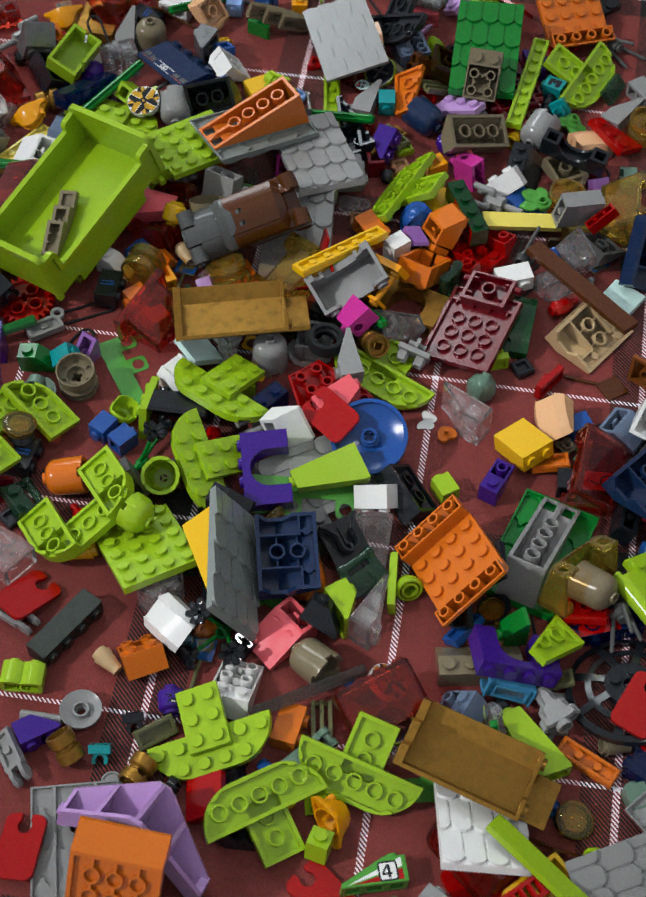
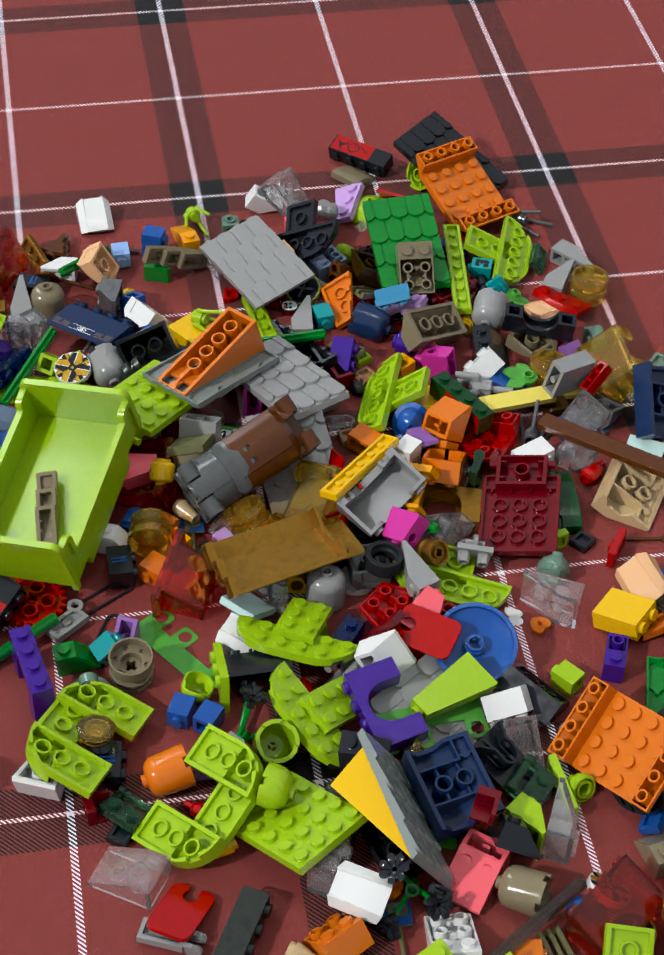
camera: 20 degrees left, 10 degrees down
(194, 110) = (133, 366): none -> pearl dark grey wheel
(205, 195) = (190, 445): none -> olive tile
(299, 399) = (385, 626): none -> dark red tile
(302, 580) = (485, 805): none -> dark red panel
(451, 96) = (392, 295): none -> dark azure bracket

